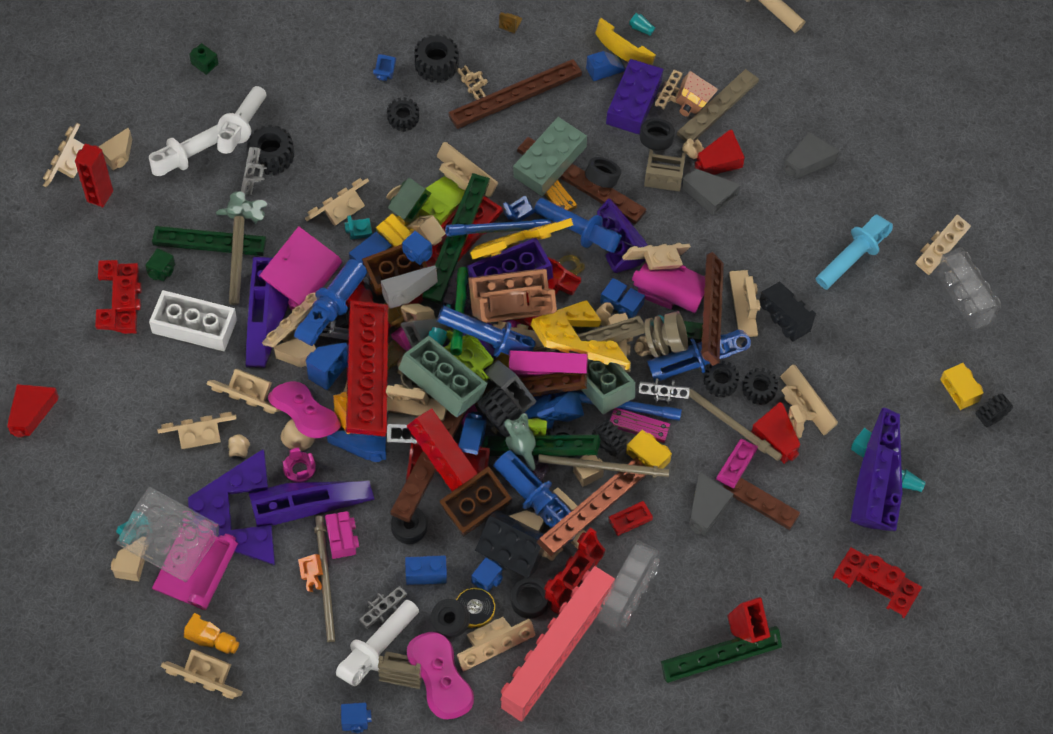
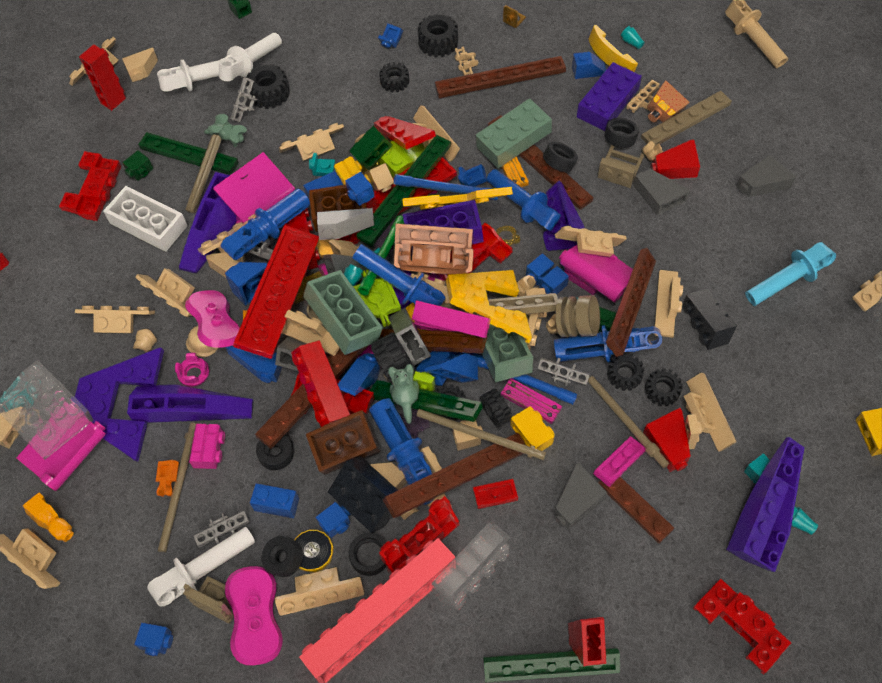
camera: 20 degrees right, 0 degrees up
(435, 176) = (403, 132): none -> red wing

